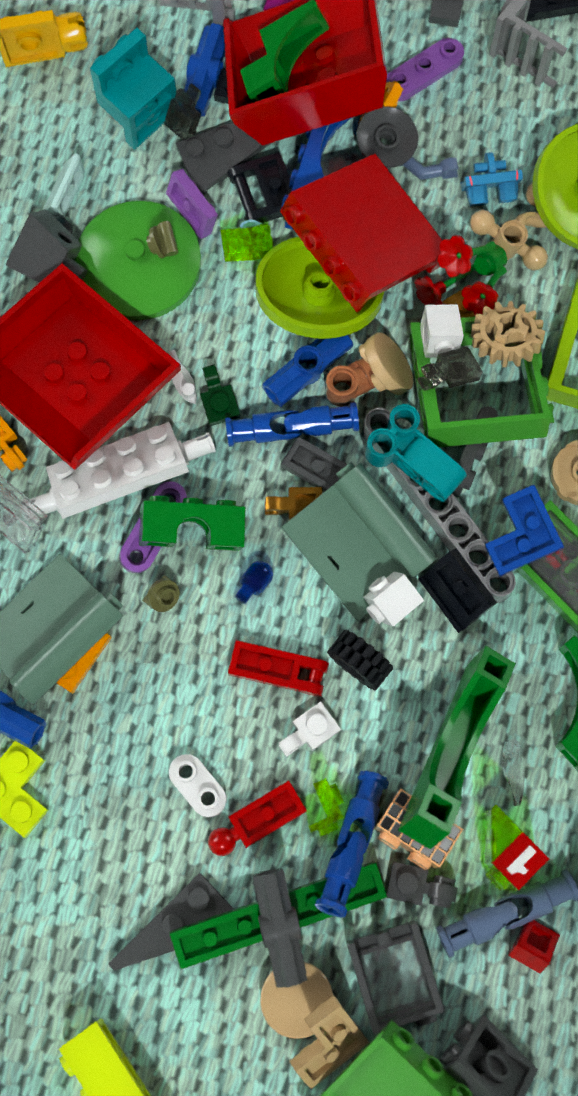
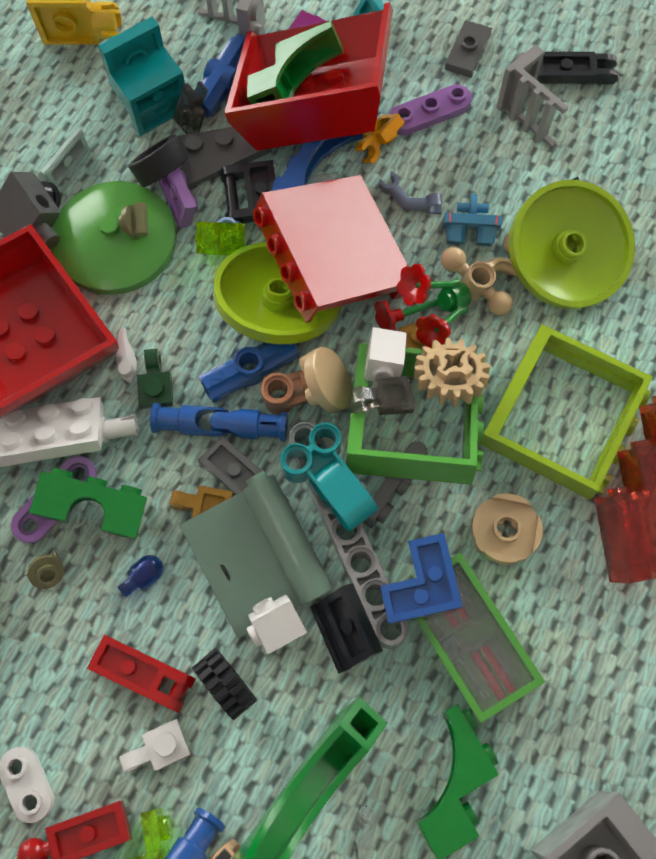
camera: 10 degrees right, 5 degrees down
(167, 173) = (158, 160): none -> black tyre
(393, 126) = (386, 154): dark grey dish -> none

